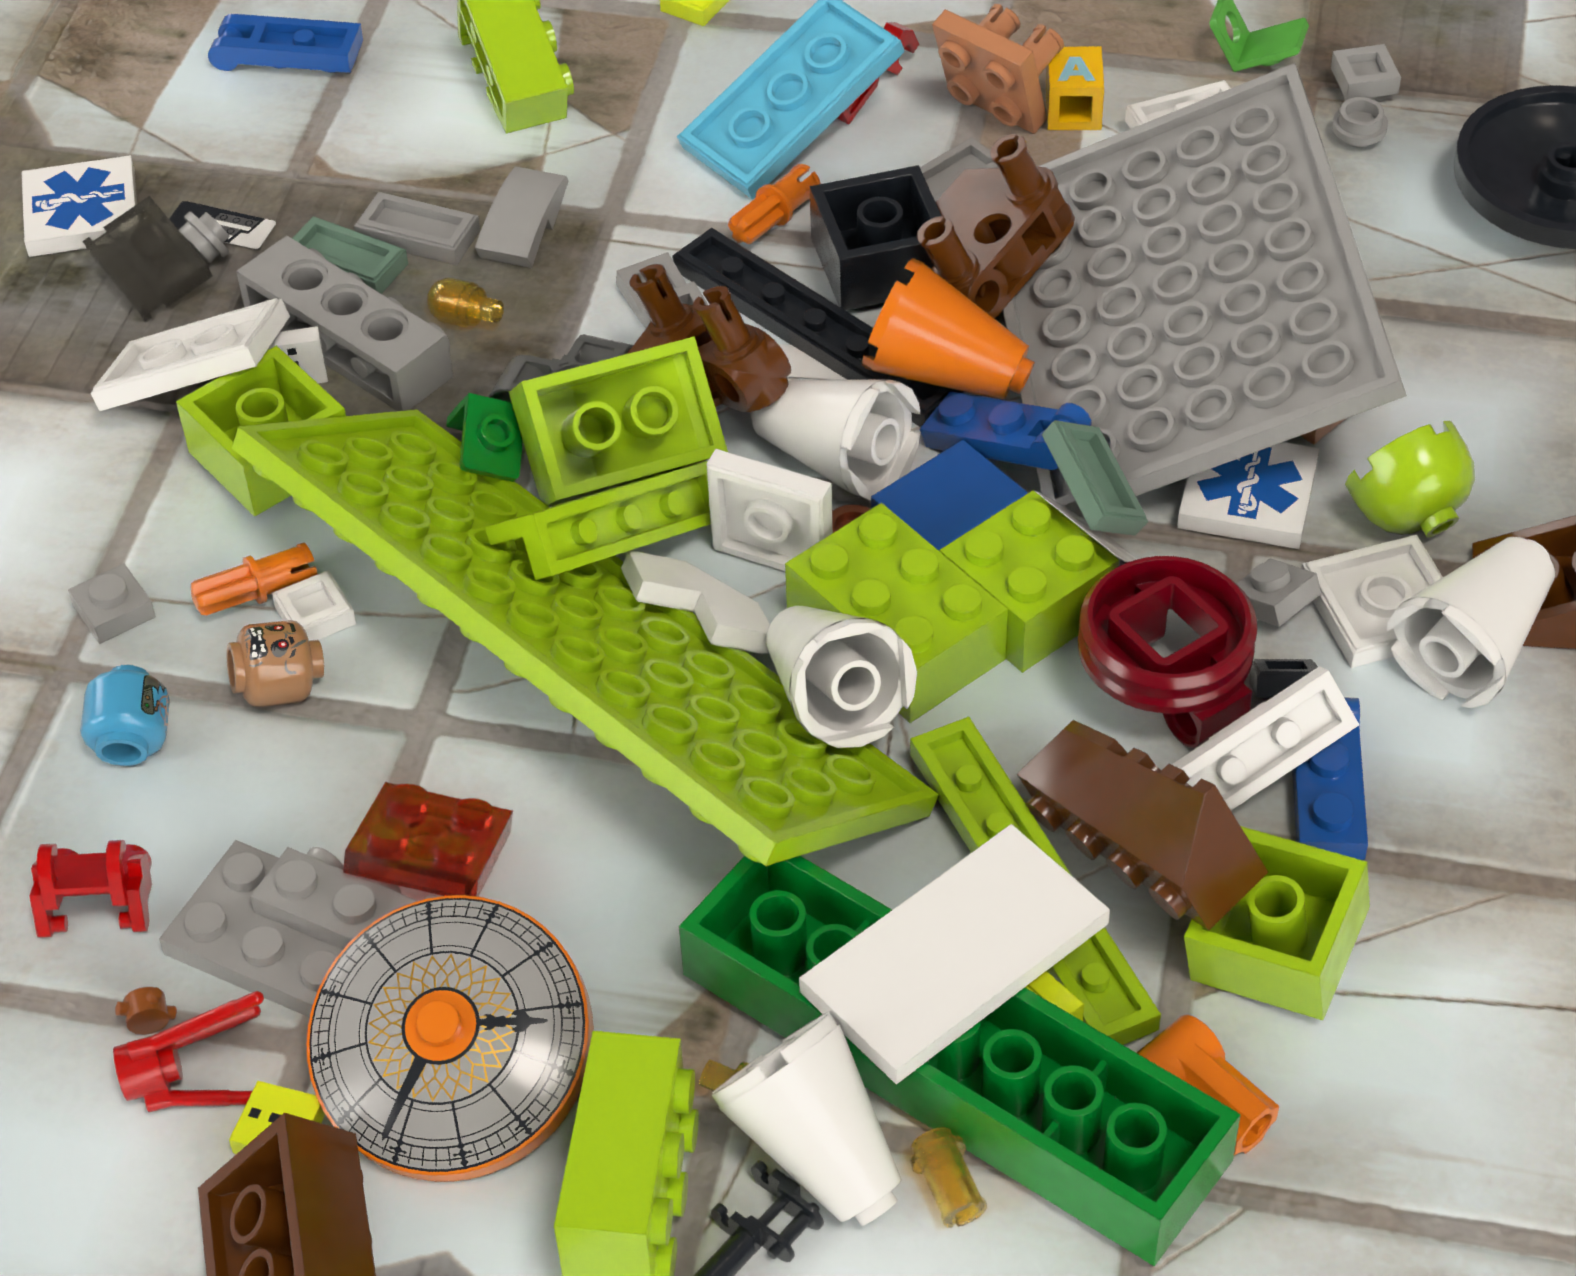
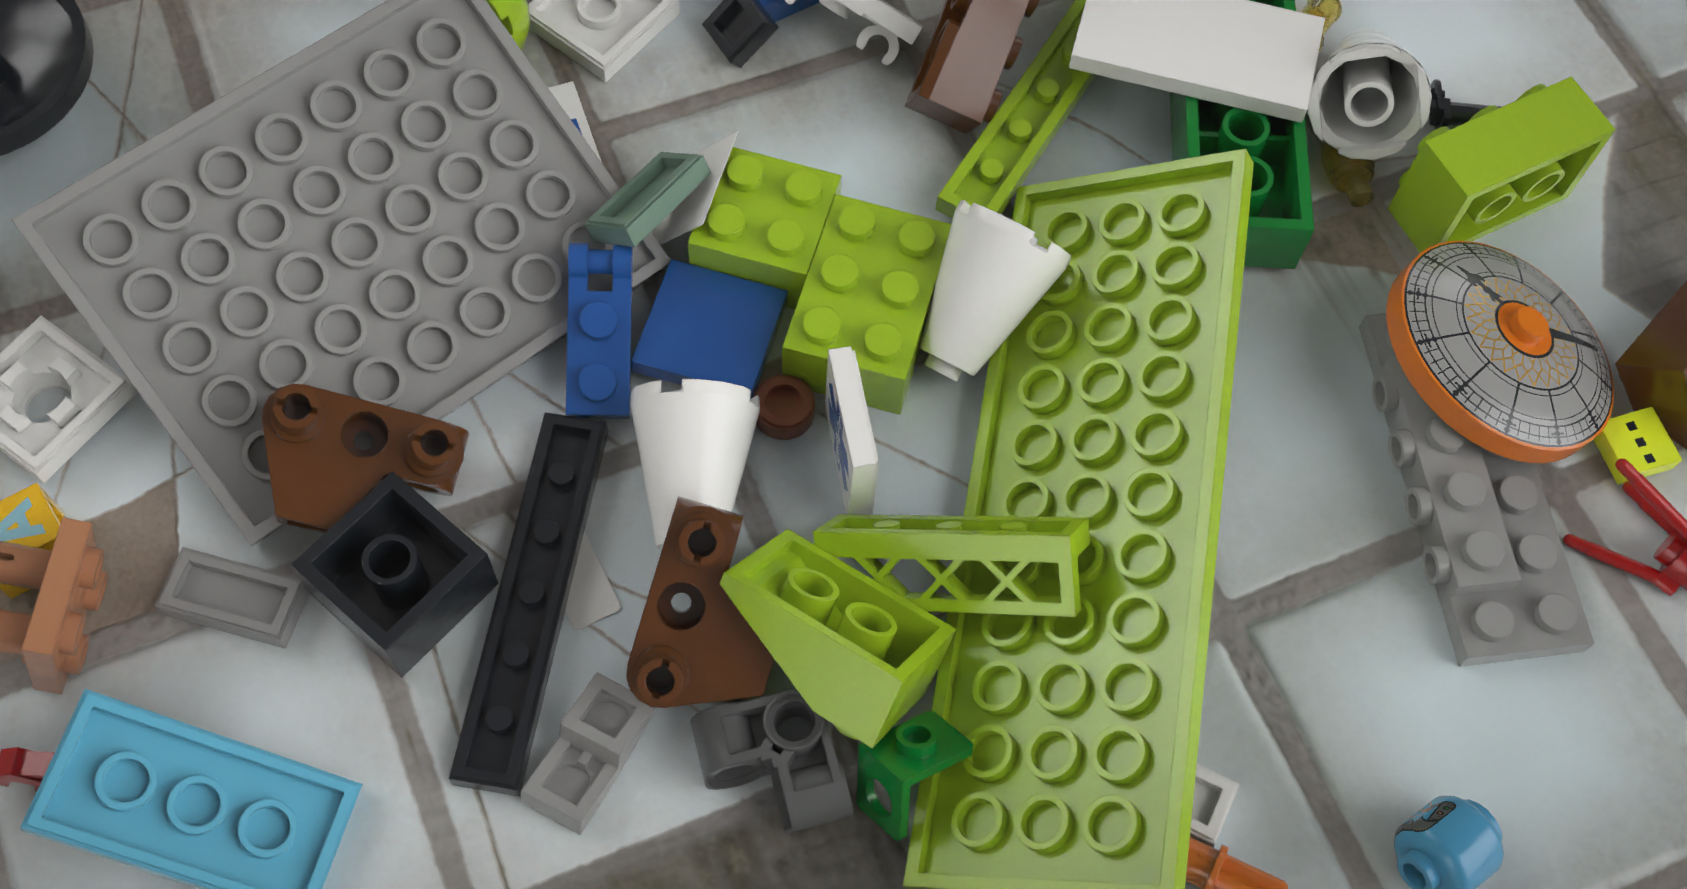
camera: 130 degrees left, 15 degrees up
(118, 872) = (1609, 732): red piece -> none
(145, 1010) = (1648, 607): dark orange piece -> none
(274, 663) = (1292, 765): medium nougat head -> none
(428, 841) = (1358, 493): clear red plate -> none
(723, 612) = (950, 442): white tile -> none
(772, 205) = (375, 736): orange axle -> none
(945, 339) = (536, 425): orange cone -> none
(1198, 685) = (804, 51): dark red piece -> none
(1279, 590) = (649, 73): light grey plate -> none

